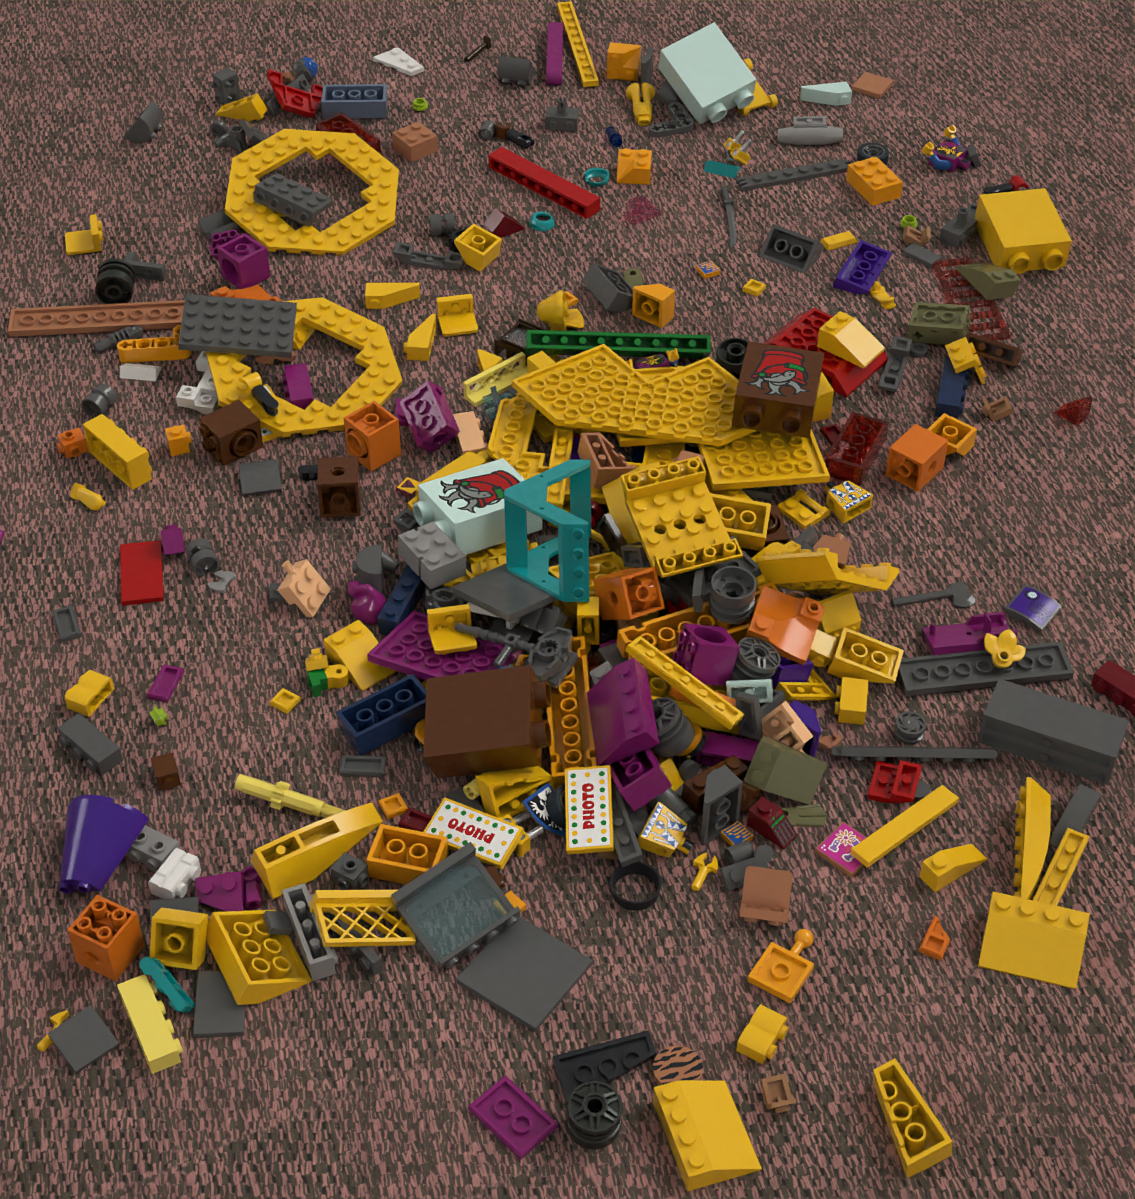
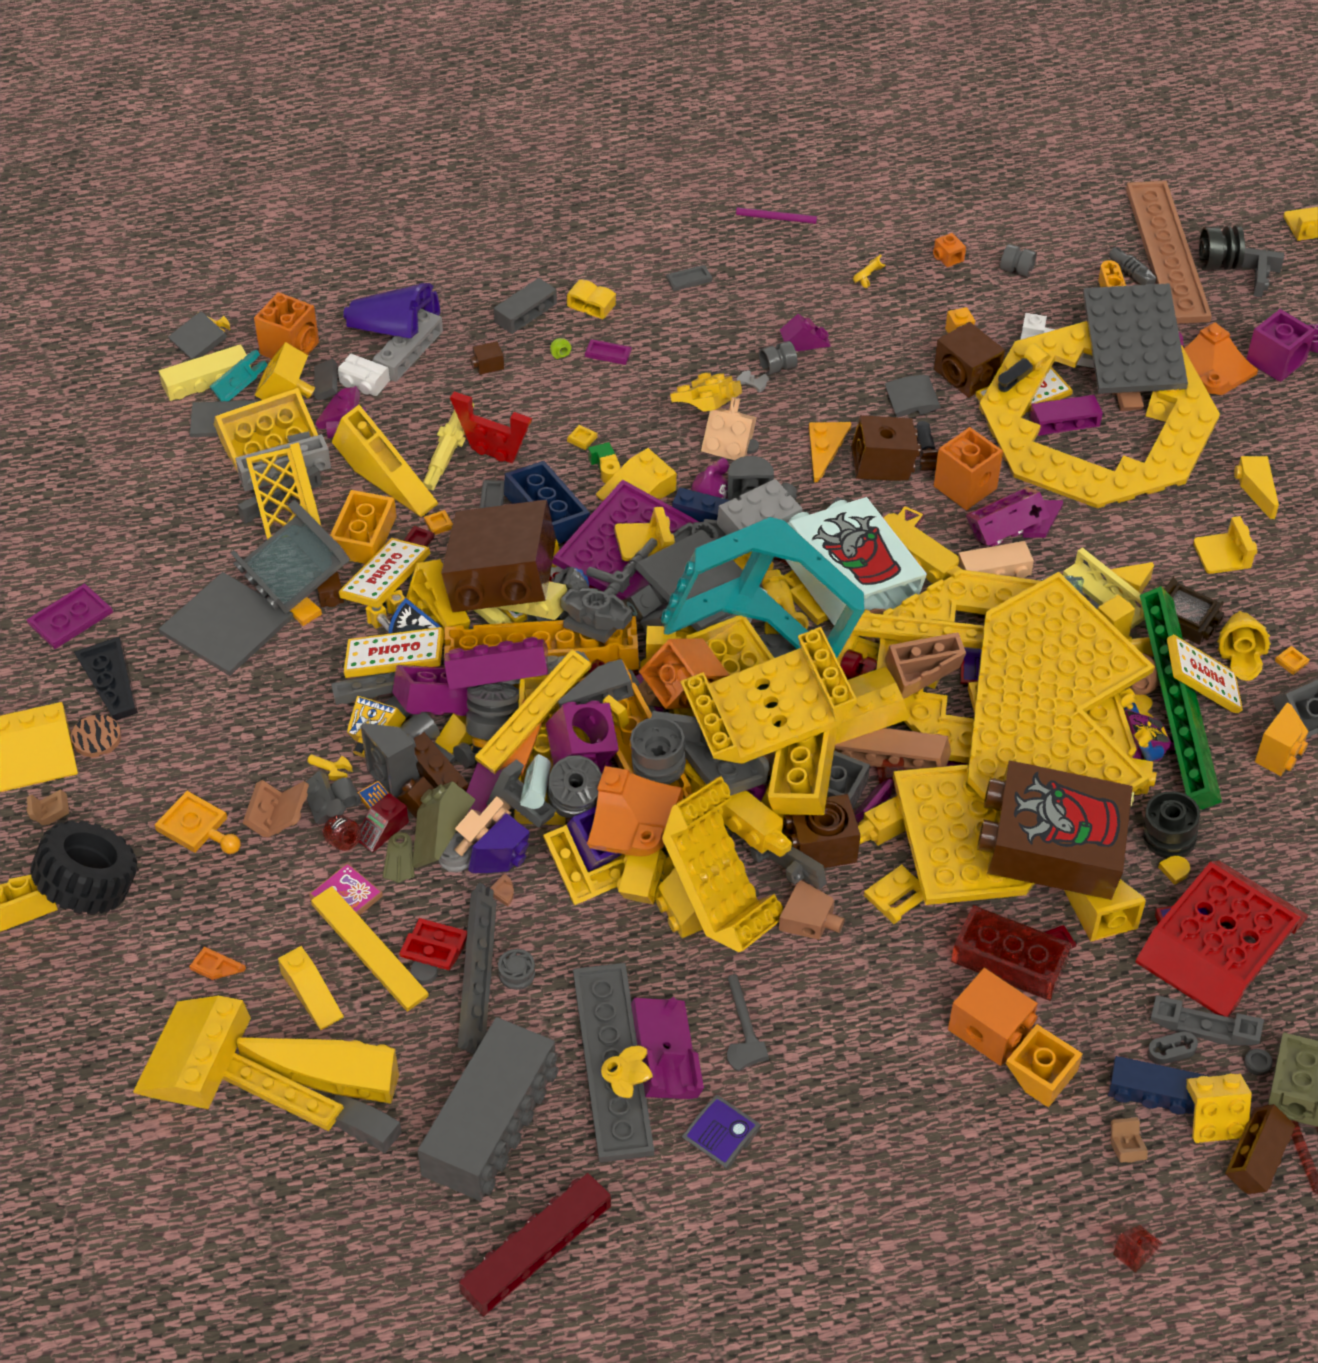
camera: 90 degrees right, 5 degrees up
(117, 451) = (928, 277): yellow brick -> none
(139, 372) = (1078, 283): white slope -> none
(141, 572) = (756, 320): red tile -> none
(256, 590) = (708, 391): none -> yellow bracket
(300, 750) = (489, 436): none -> red wing
(305, 533) = (824, 444): none -> light orange wing
(316, 660) = (622, 448): yellow plate -> none
(350, 873) = (345, 483): dark grey brick -> none
(421, 340) = (1174, 517): yellow slope -> none
(531, 629) = (642, 601): none -> dark grey brick
(594, 1115) = (45, 661): pearl dark grey wheel -> none
(595, 327) = (1204, 674): none -> tile
(636, 868) = (307, 689): black tyre -> none
(653, 629) = (603, 681): none -> dark grey slope
(678, 627) = (618, 711): none -> yellow tile
(761, 1034) = (118, 799): yellow brick -> none
(787, 850) = (341, 832): none -> clear red head
(847, 500) = (912, 937): yellow torso -> none
(849, 340) = (1216, 944): yellow slope -> none
(852, 700) = (559, 913): yellow brick -> none
(865, 658) = (622, 926): yellow slope -> none
(867, 1031) = (83, 867): none -> black tyre
(912, 386) = (1170, 1044): none -> dark grey beam

